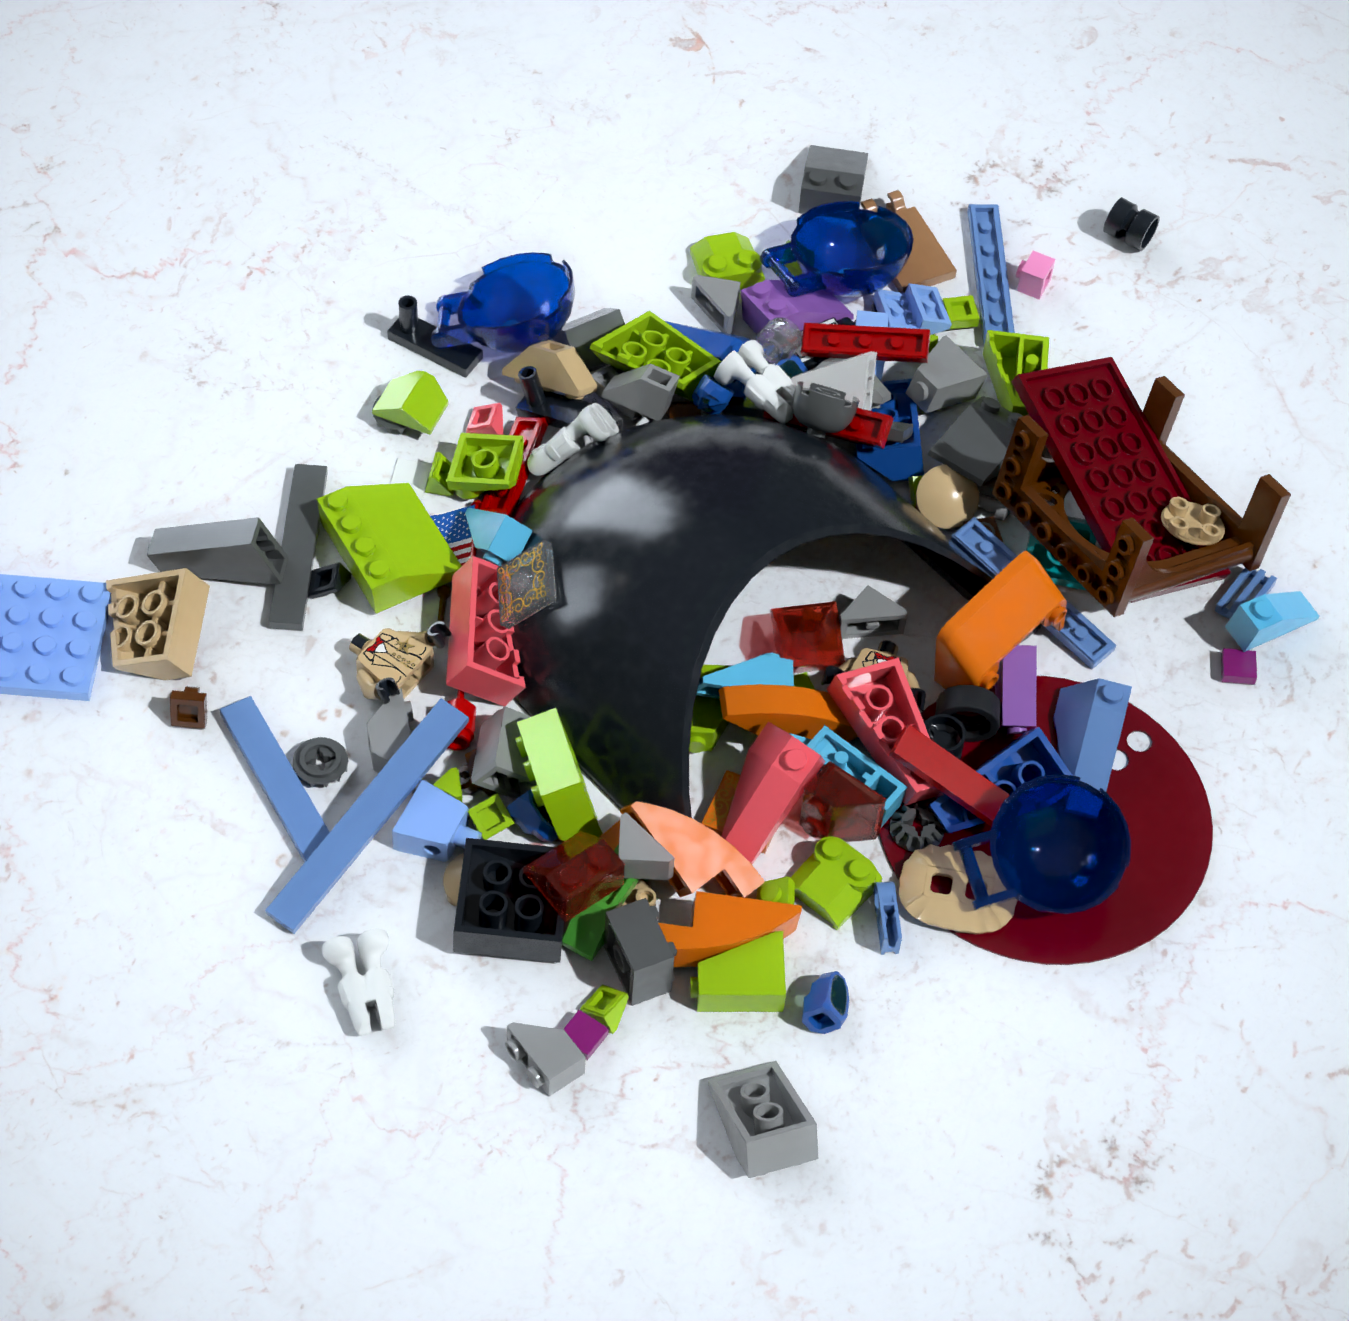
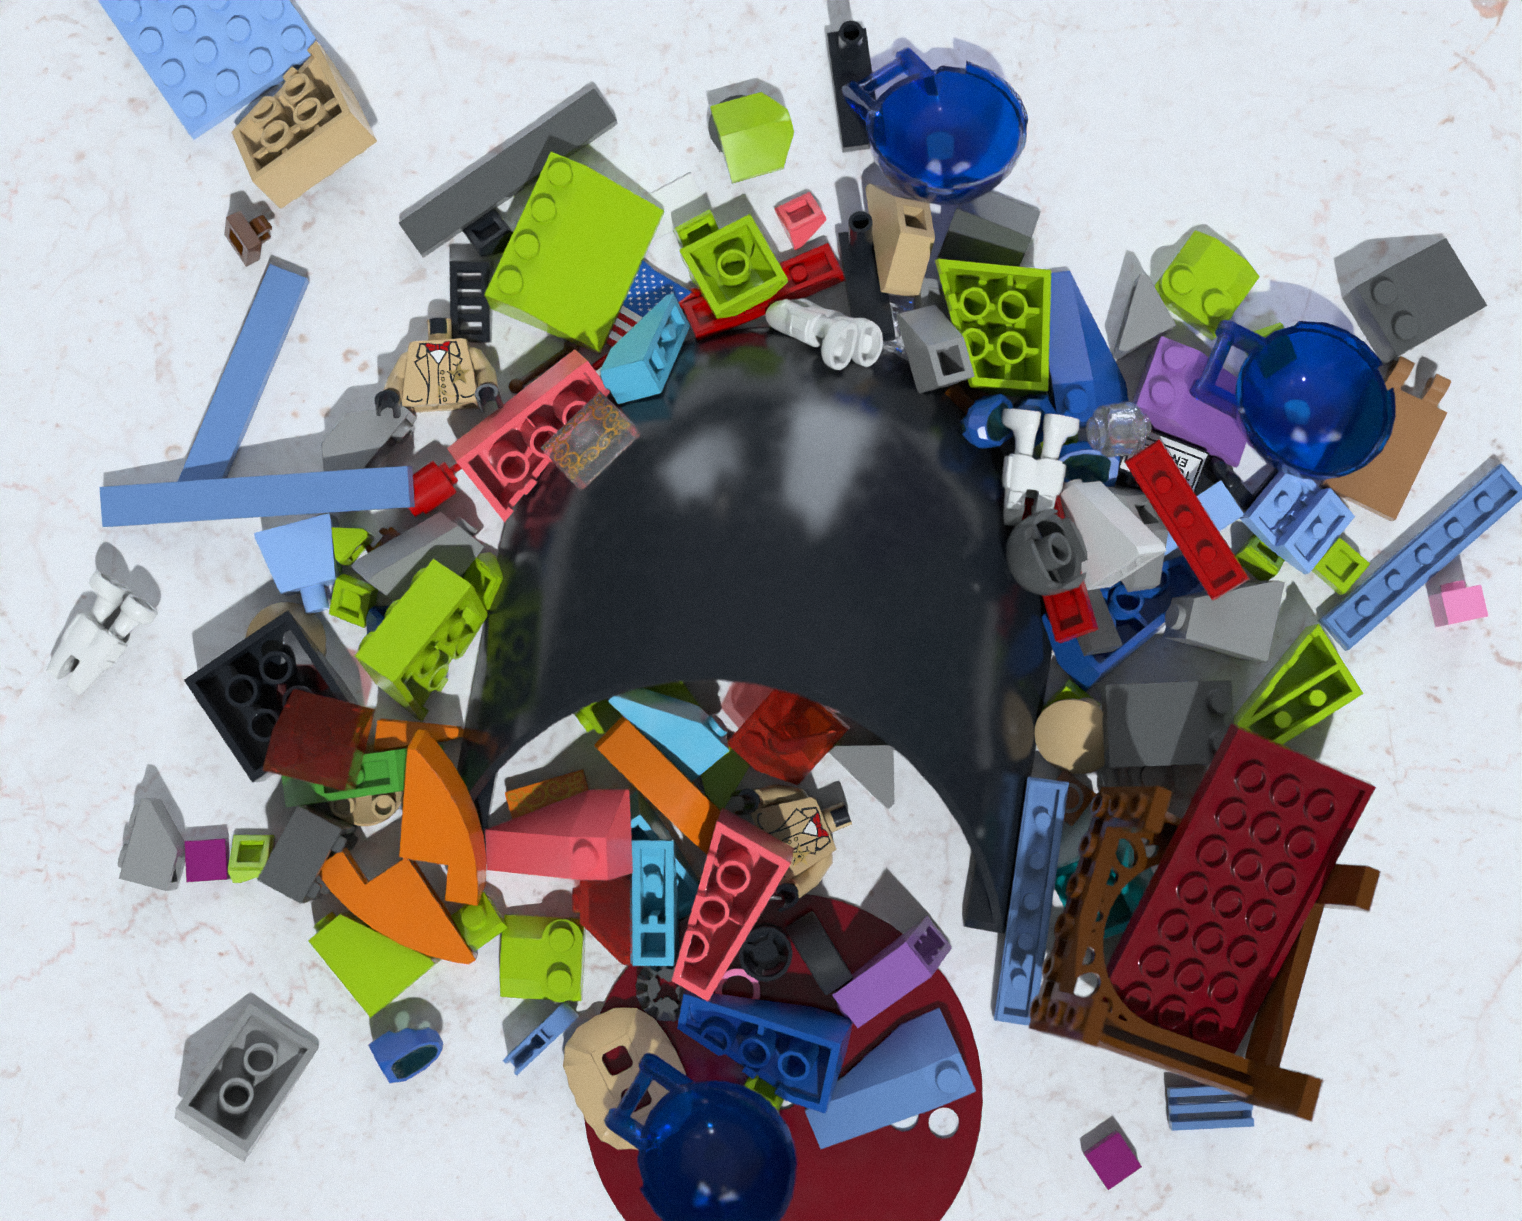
camera: 55 degrees right, 30 degrees up
(221, 551) = (422, 116): dark grey slope -> none
(333, 755) = (291, 381): dark grey gear -> none
(352, 598) = (457, 268): none -> black slope
(642, 853) = (384, 783): light grey slope -> none
(948, 774) = (713, 1005): red tile -> none
(996, 623) = (926, 927): orange windscreen -> none
(1193, 522) = (1233, 1012): tan dish -> none
(1269, 618) = (1191, 1160): medium azure slope -> none

